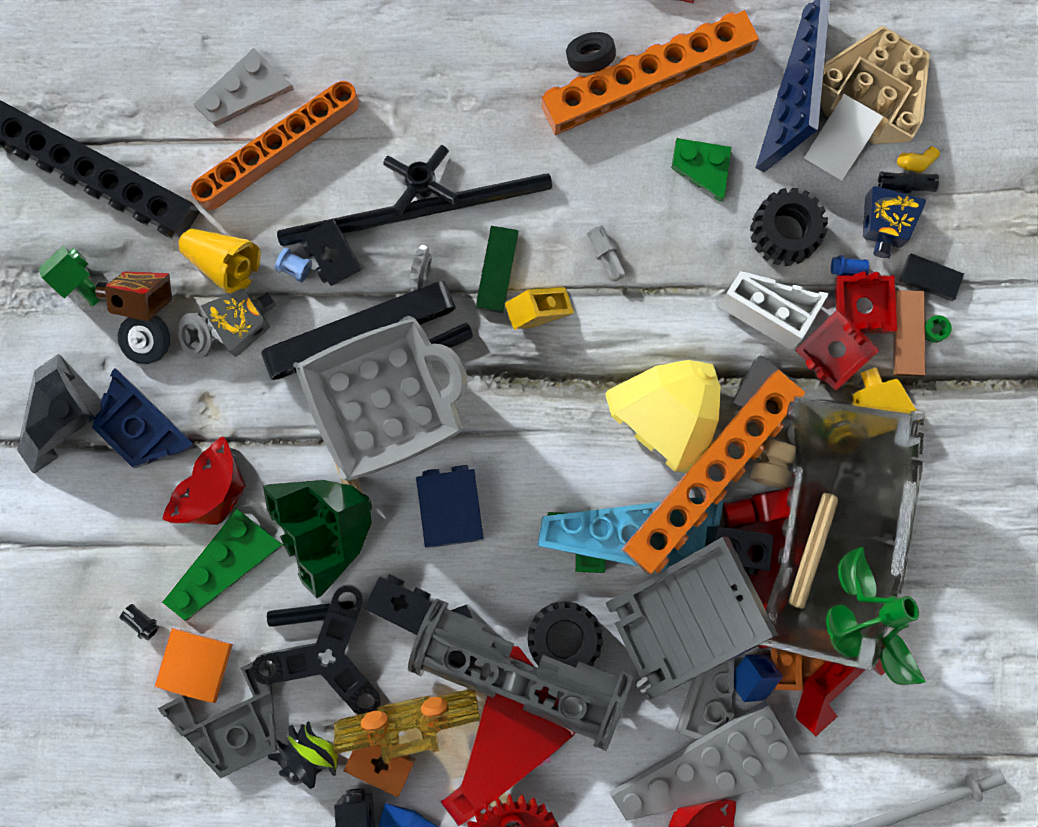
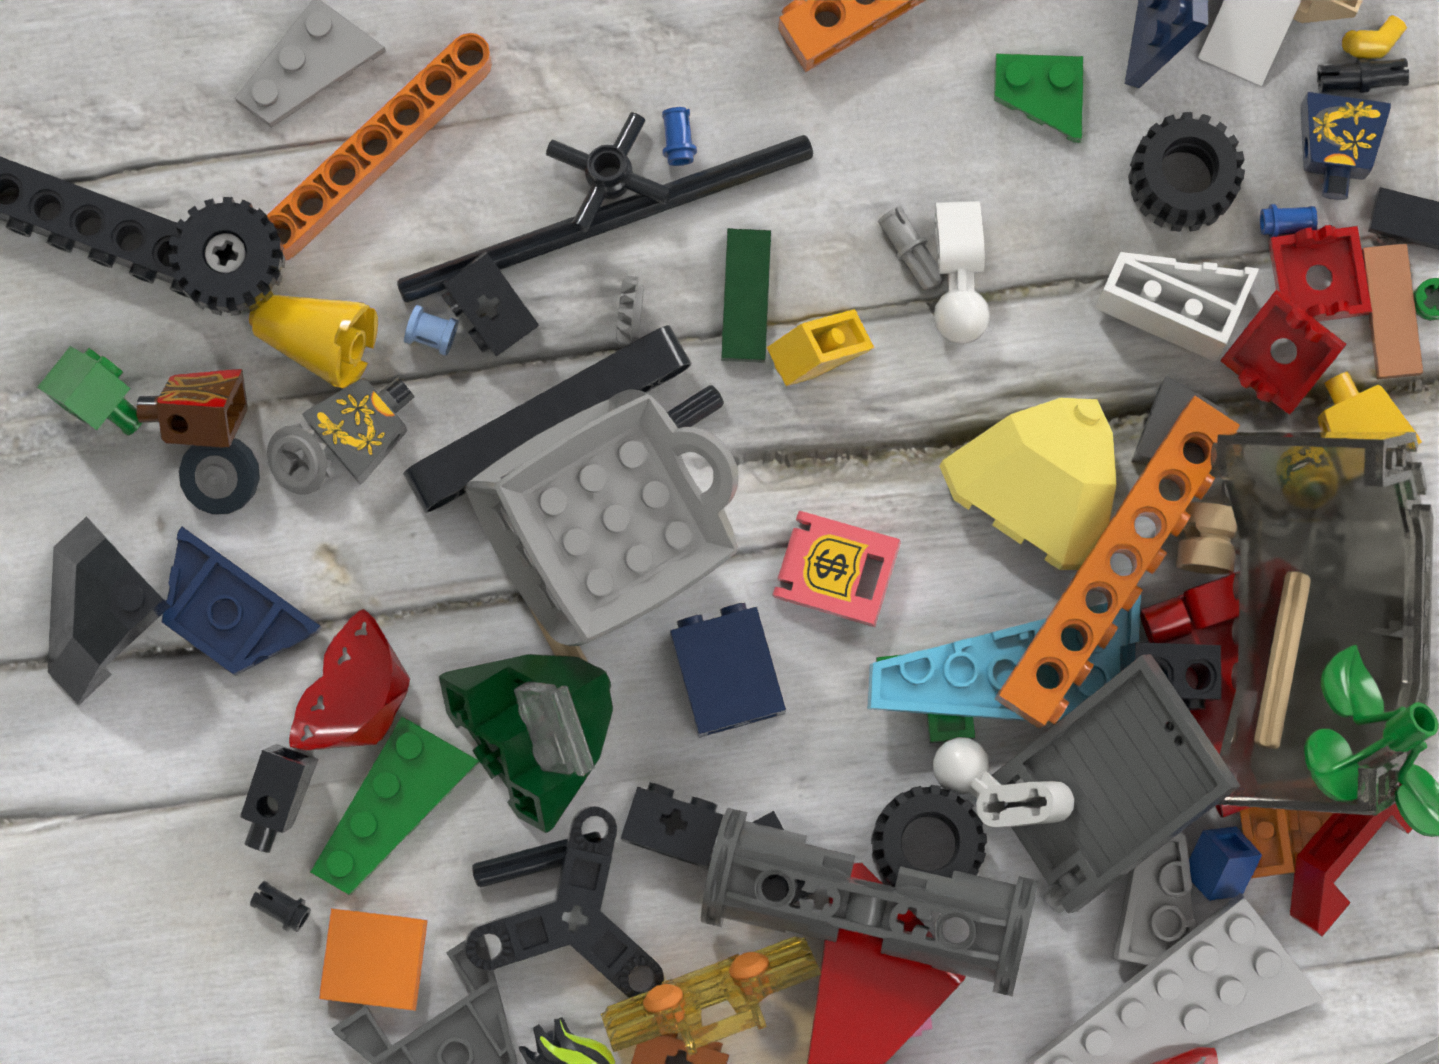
camera: 10 degrees left, 0 degrees up
(146, 548) = (284, 777): none -> black torso
(172, 215) = (240, 281): none -> black bush
(329, 531) = (554, 728): none -> clear plate
(468, 161) = (678, 138): none -> blue pin
(525, 447) = (828, 567): none -> coral container
(594, 593) = (965, 769): none -> white beam
(637, 257) = (959, 238): none -> white beam

